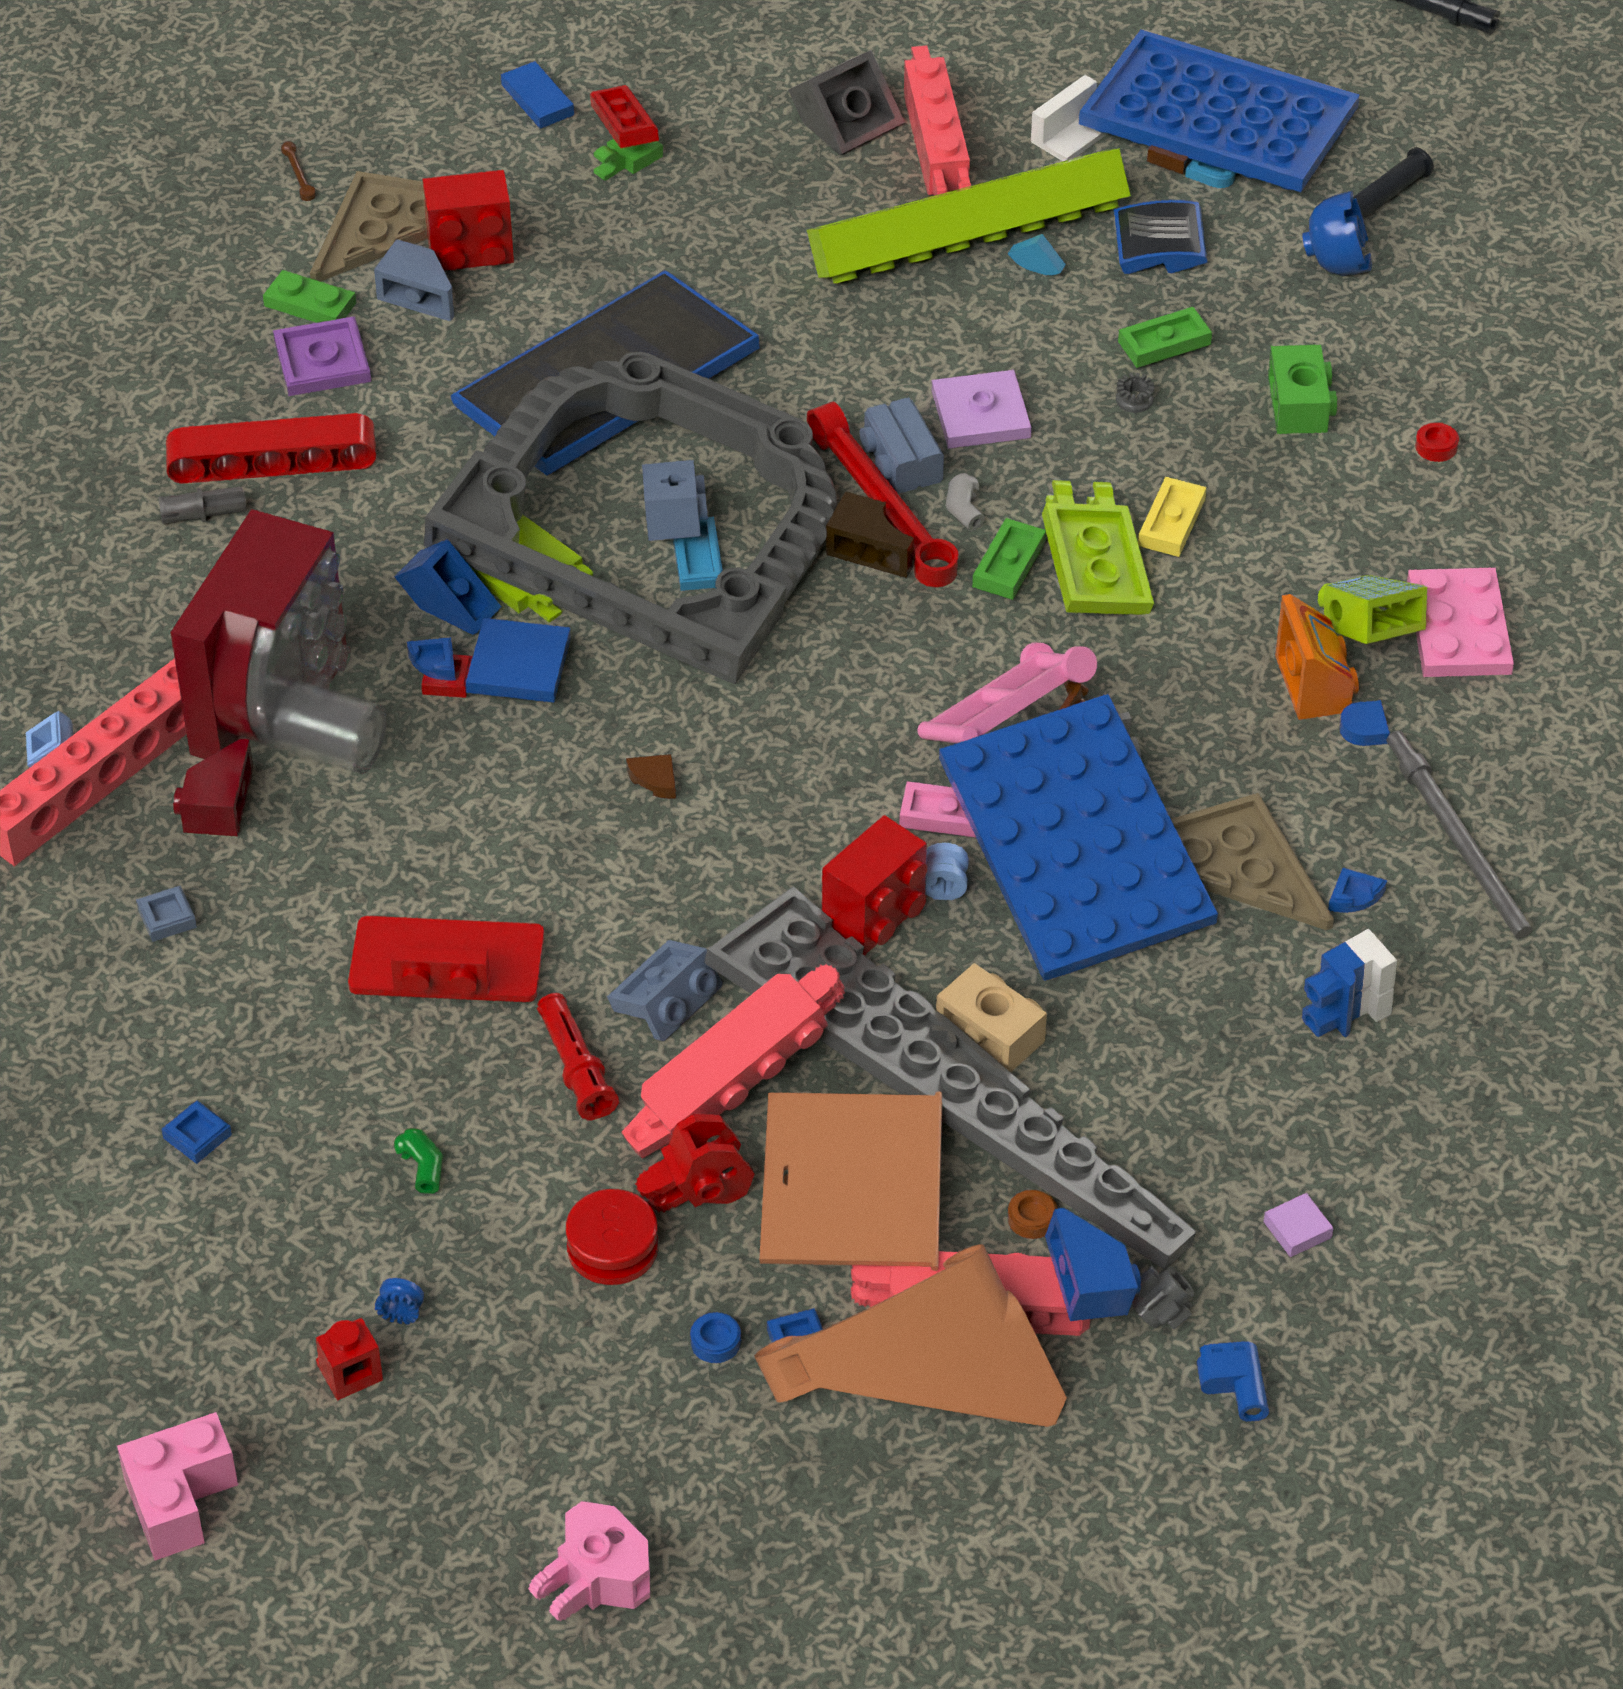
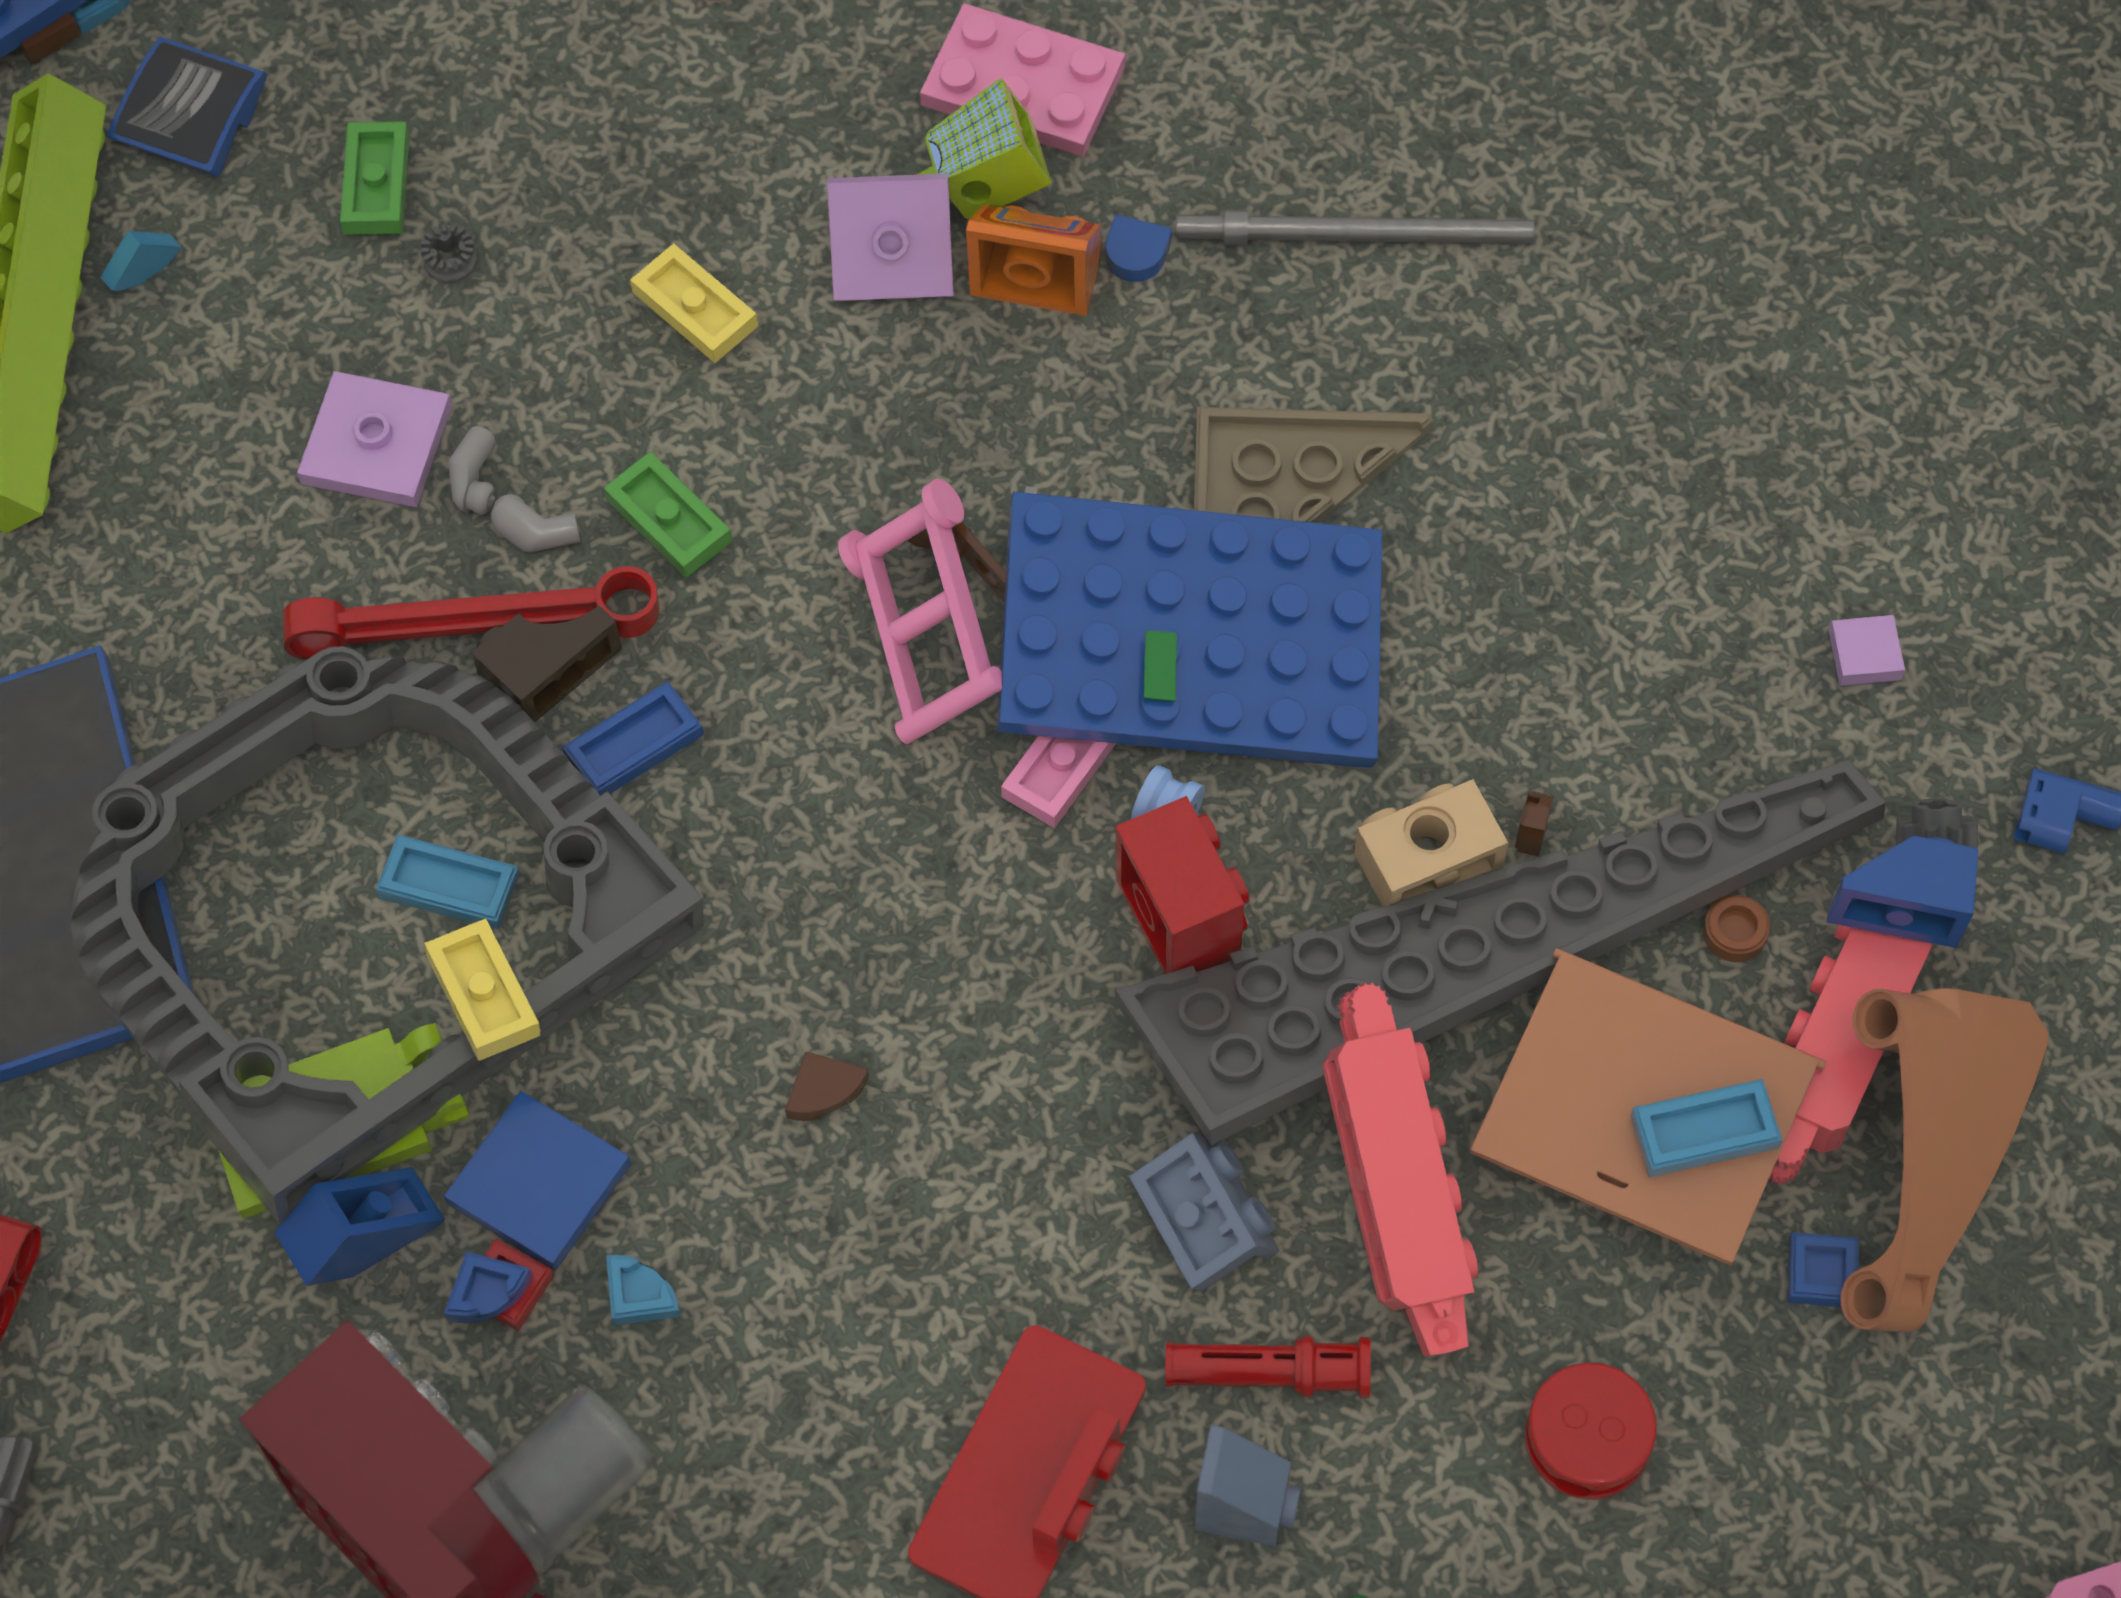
camera: 65 degrees left, 15 degrees up
(472, 736) = (638, 1292): none -> dark azure tile
(475, 1051) = (1244, 1490): none -> sand blue slope
(607, 560) = (482, 989): none -> light yellow plate
(673, 500) = (362, 870): sand blue brick -> none
(695, 1167) = (1544, 1289): red hinge -> none
(715, 1337) = (1785, 1367): blue tile -> none
(842, 603) = (634, 739): none -> blue tile
(847, 1209) = (1706, 1128): none -> dark azure tile
(902, 445) = (402, 554): sand blue brick -> none
(982, 453) = (464, 472): none -> light grey arm
(1029, 816) = (1160, 666): none -> green piece
(1047, 1072) = (1533, 823): none -> reddish brown tile
(1096, 552) = (709, 411): lime tile -> none
(1272, 570) = (890, 237): none -> lavender plate
(1300, 389) = (527, 76): bright green brick -> none
(1351, 982) = (1569, 437): blue hips -> none
(1355, 890) = (1391, 374): blue tile -> none

